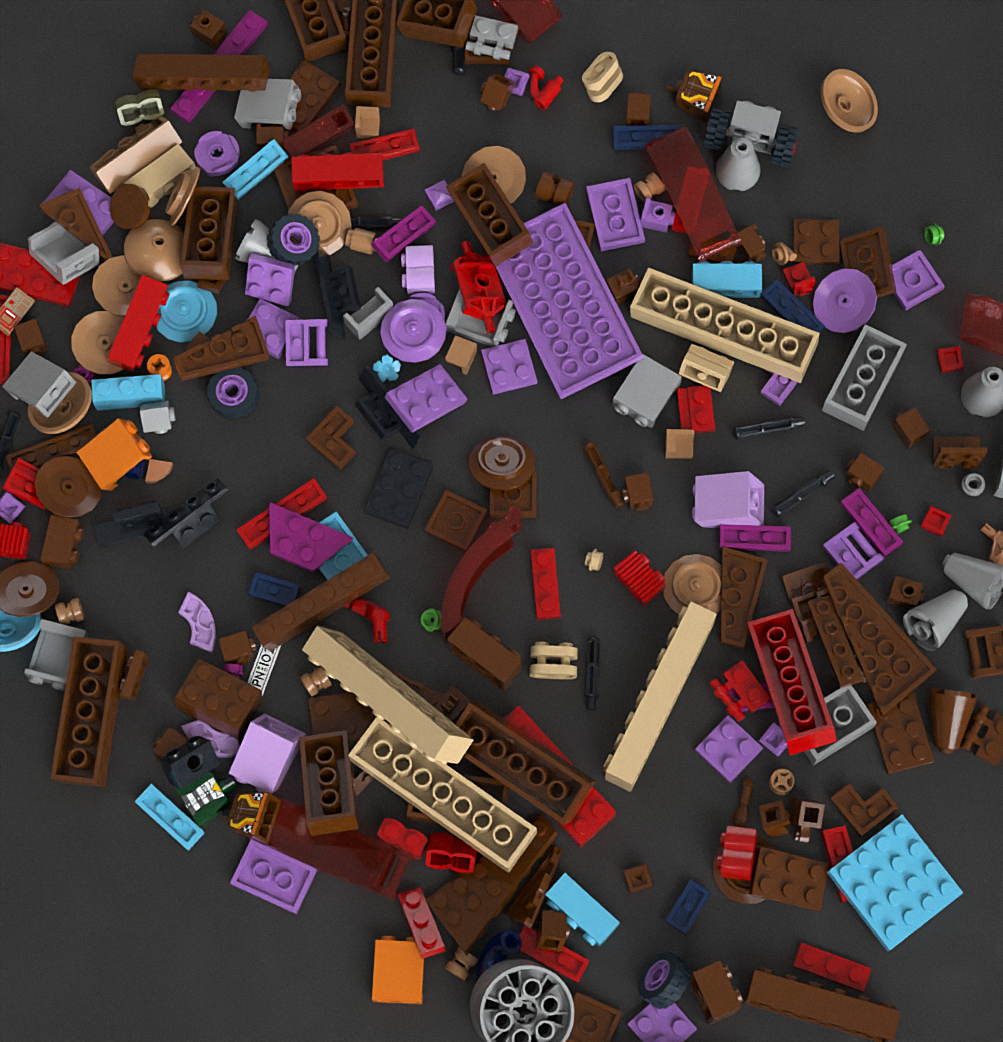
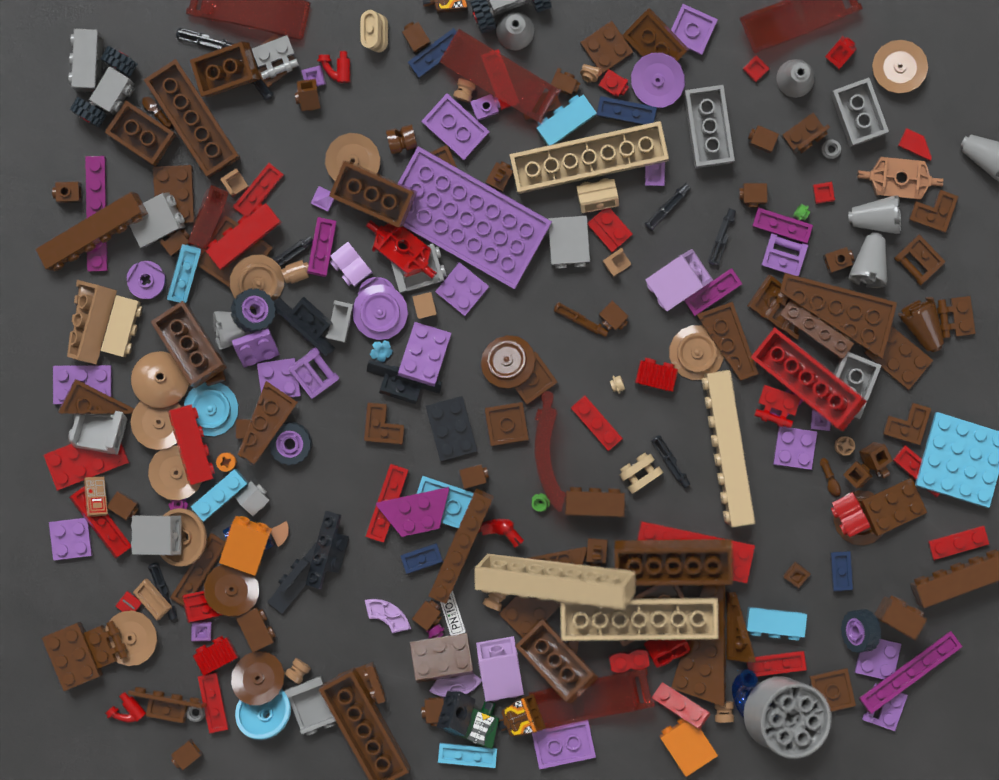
camera: 40 degrees left, 15 degrees up
(129, 206) = (119, 365): reddish brown tile -> none
(134, 108) = (67, 286): olive brick -> none
(181, 195) = (150, 332): medium nougat piece -> none
(386, 546) = (474, 476): none -> reddish brown brick
(552, 930) = (767, 650): reddish brown brick -> none

